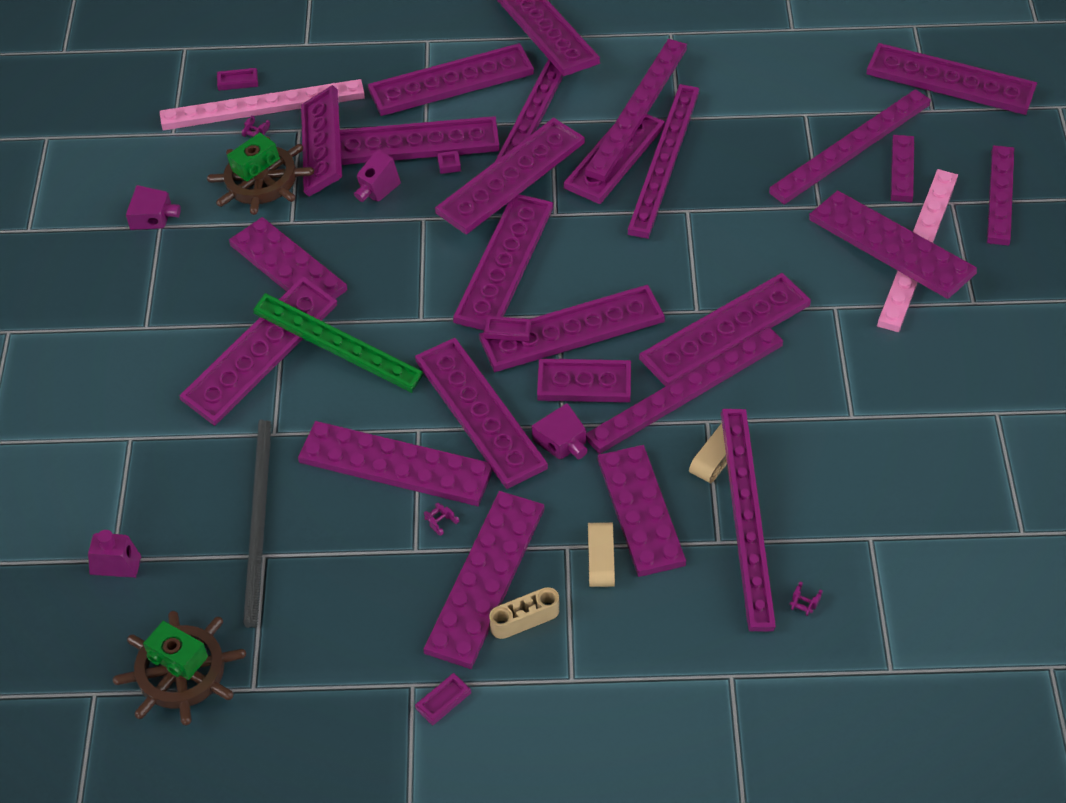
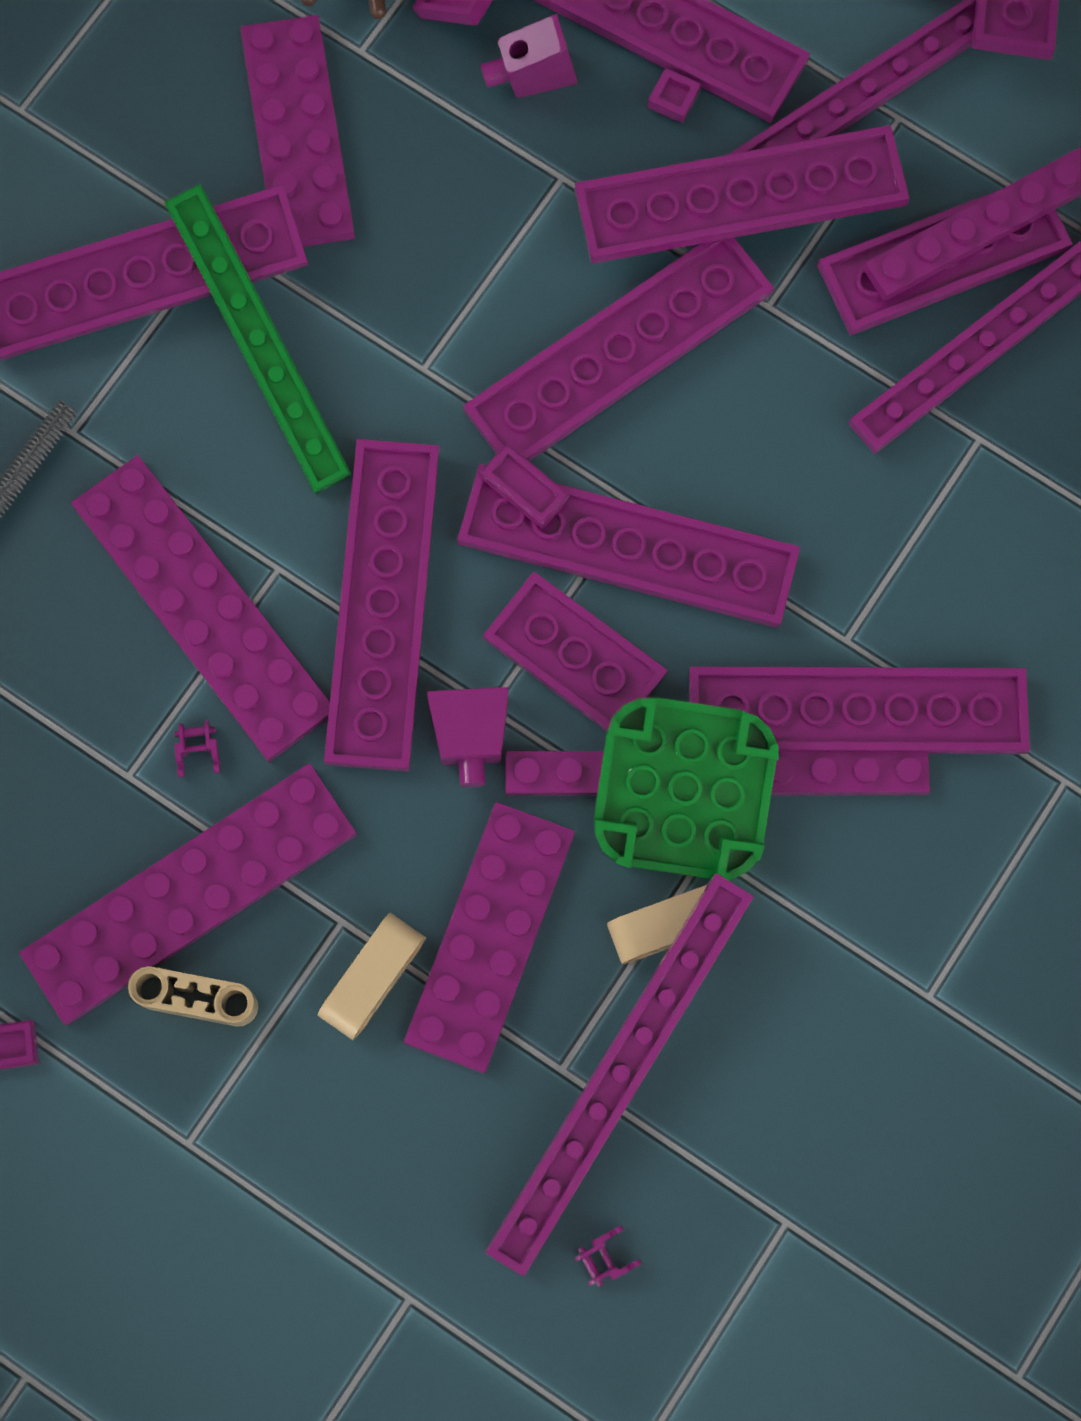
camera: 30 degrees right, 25 degrees up
(677, 395) = (685, 788): none -> green tile

